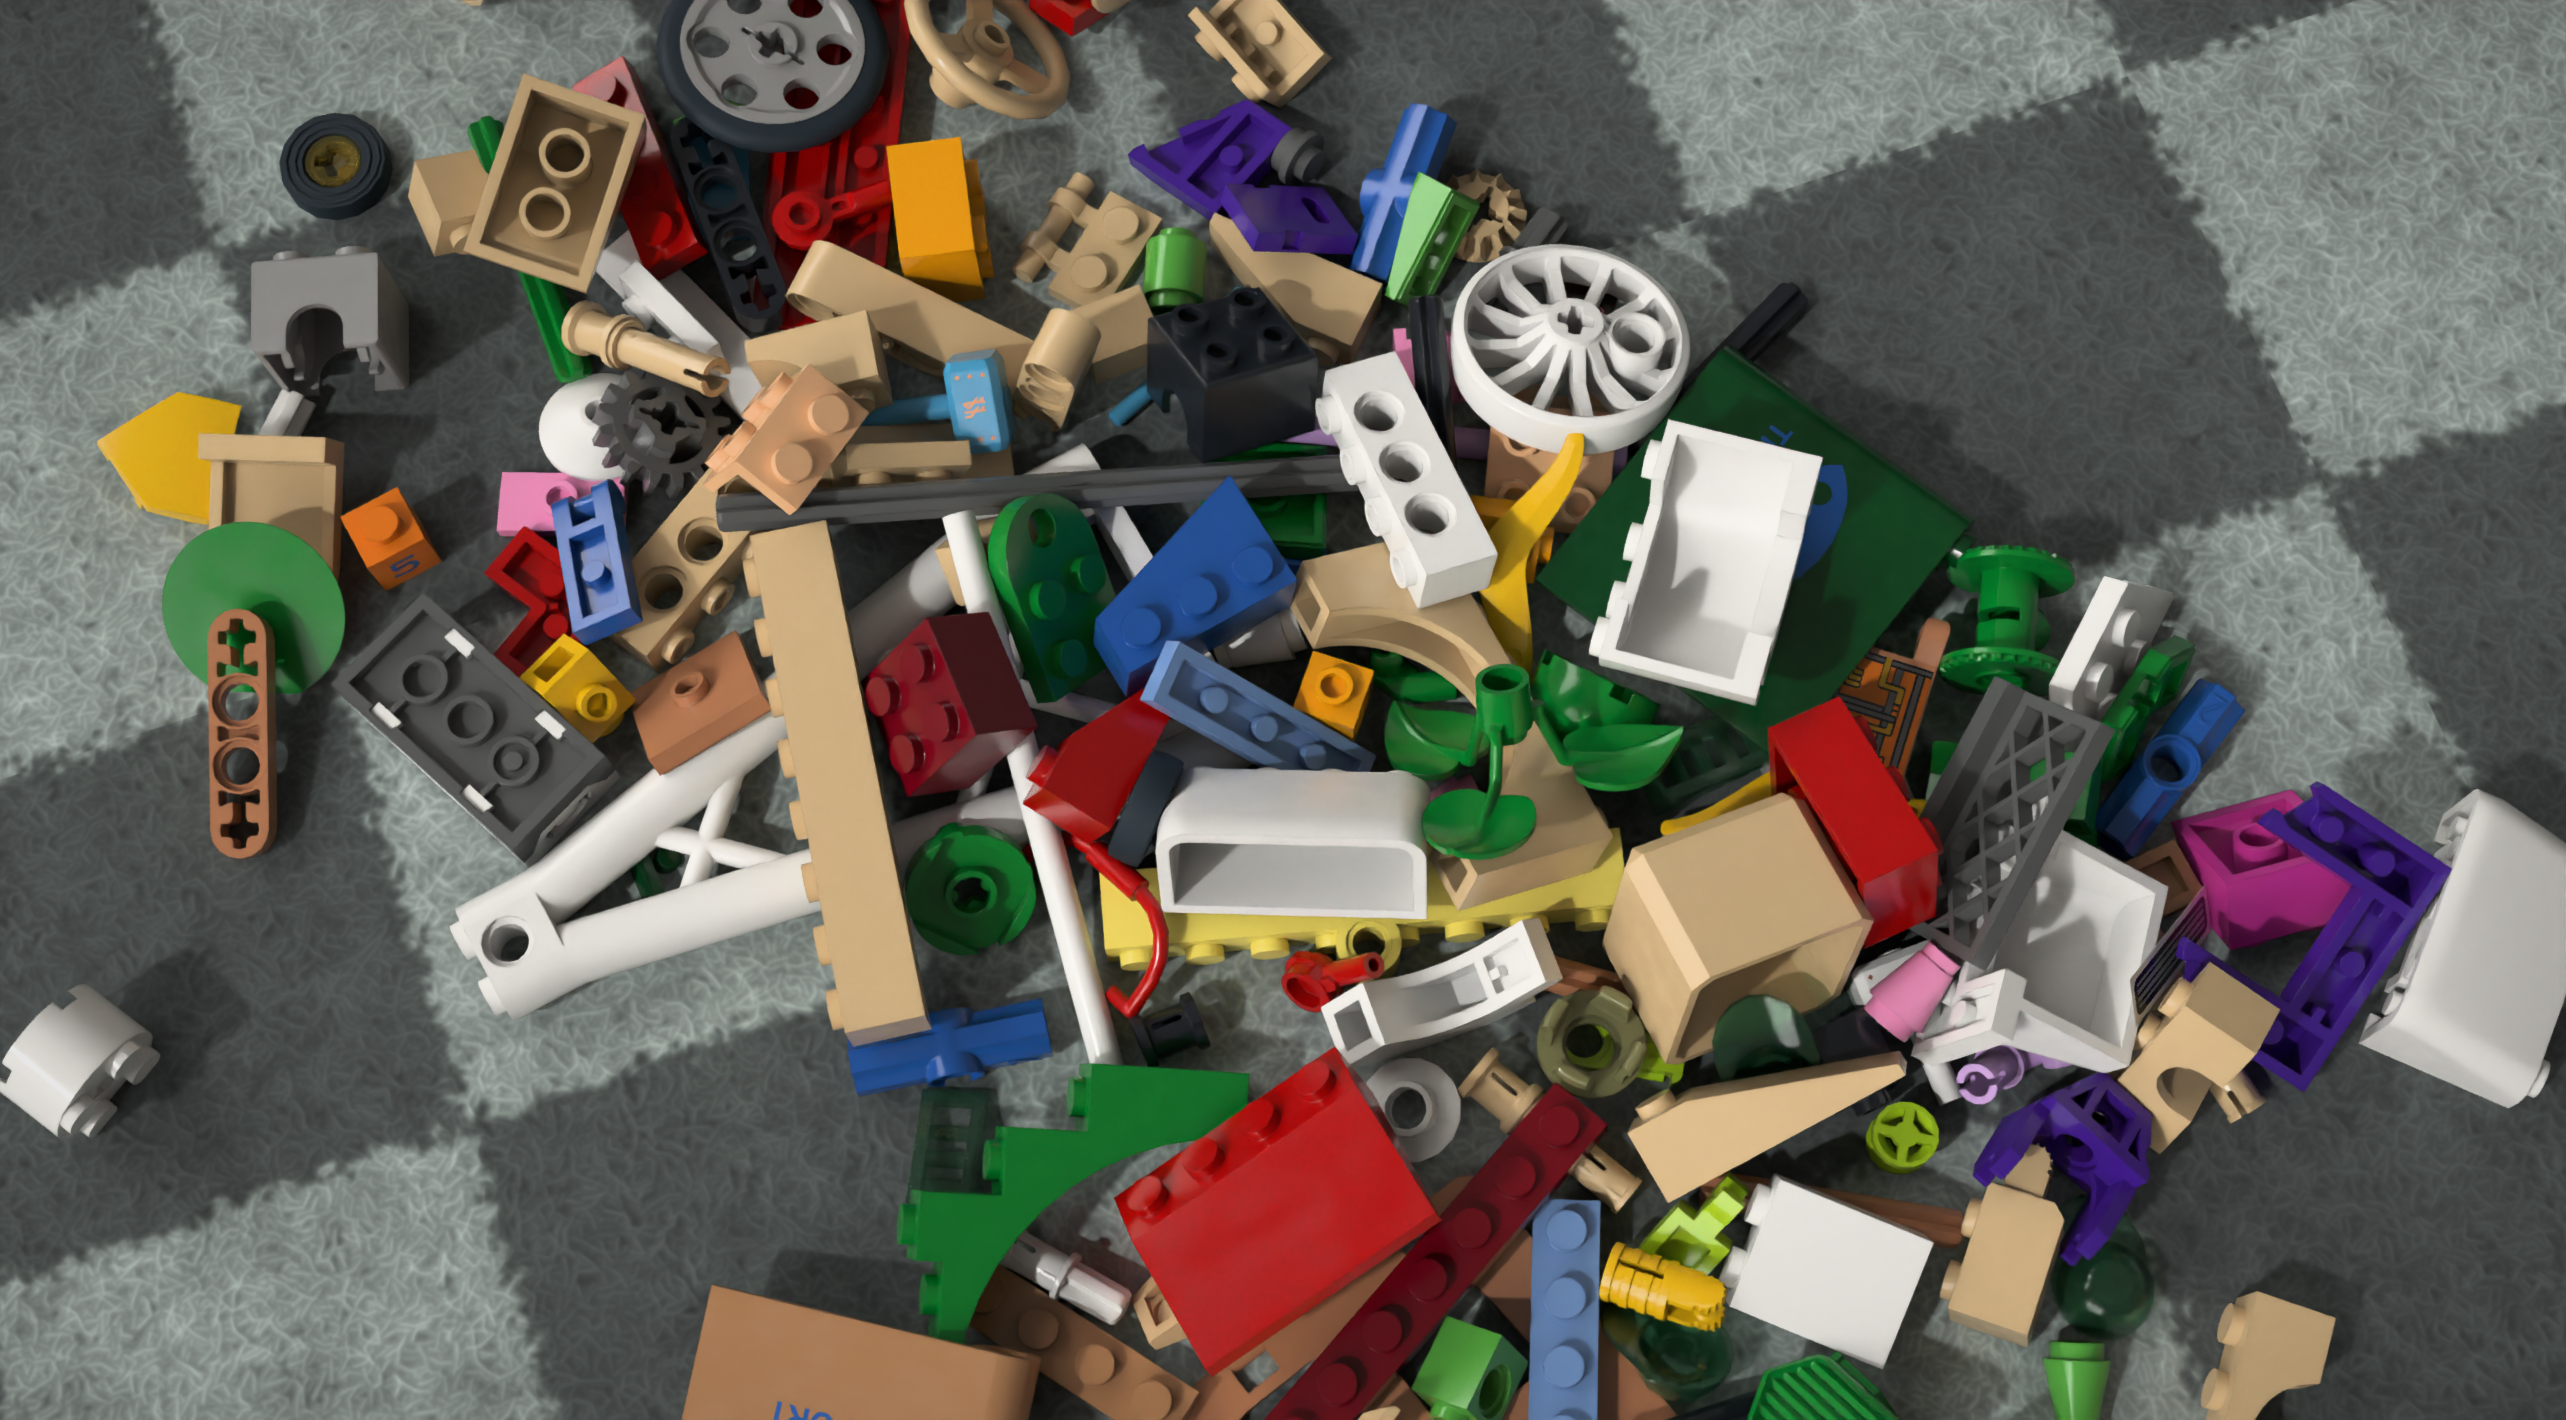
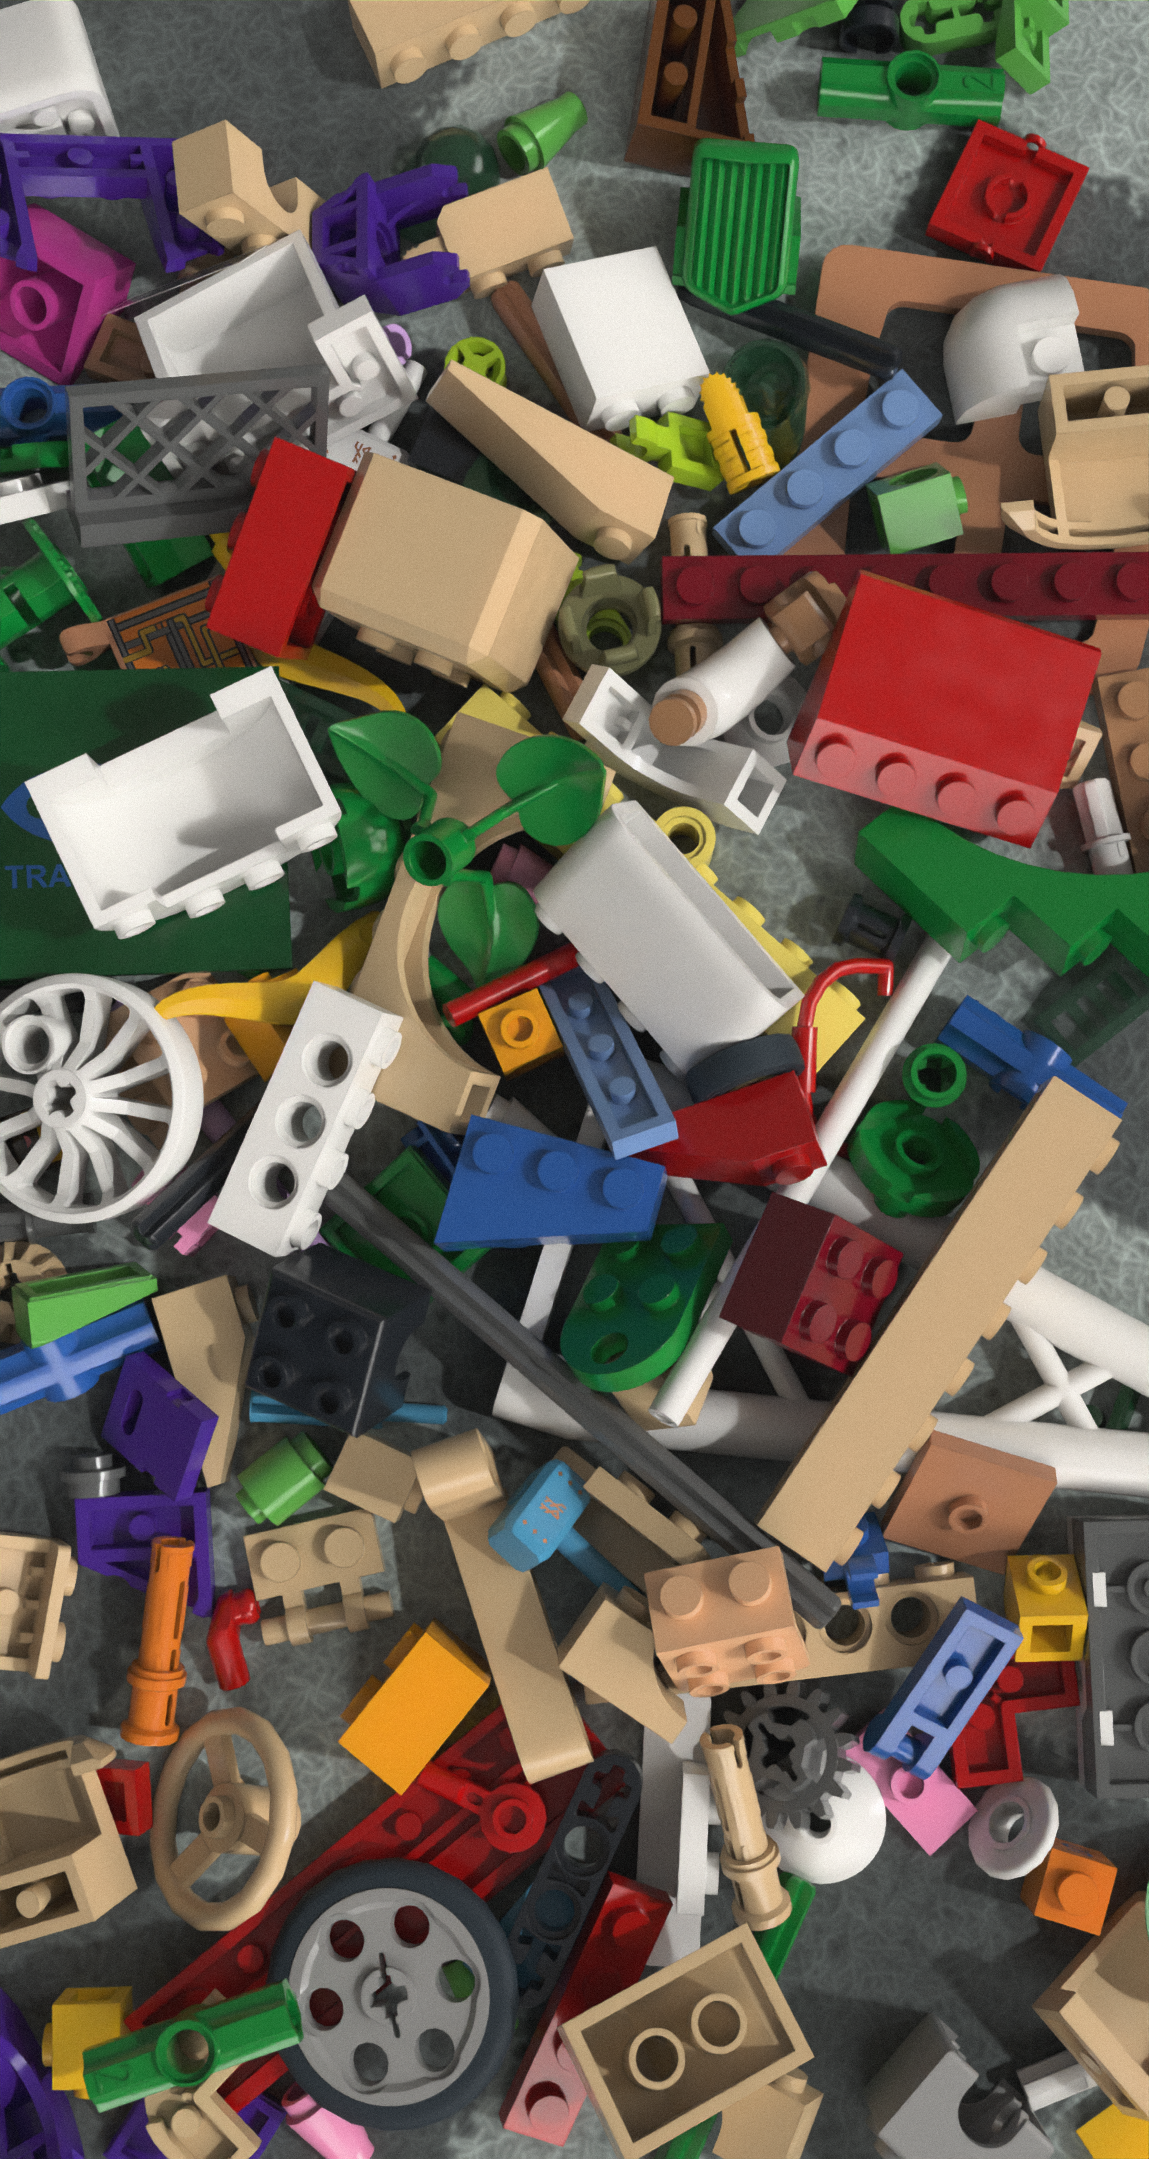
camera: 130 degrees left, 10 degrees up
(461, 513) = (995, 1816): none -> white piece
(733, 600) = (864, 1565): none -> blue plate
(1009, 942) = (943, 1065): none -> green cone
(1109, 153) = (224, 1636): none -> red arm
(1126, 89) = (158, 1669): none -> orange pin
(1316, 979) = (740, 855): red plate -> none
(1377, 710) = (511, 985): none -> red bar
(1454, 1097) = (748, 667): none -> piece
(1912, 992) = (376, 426): bright pink cone -> none

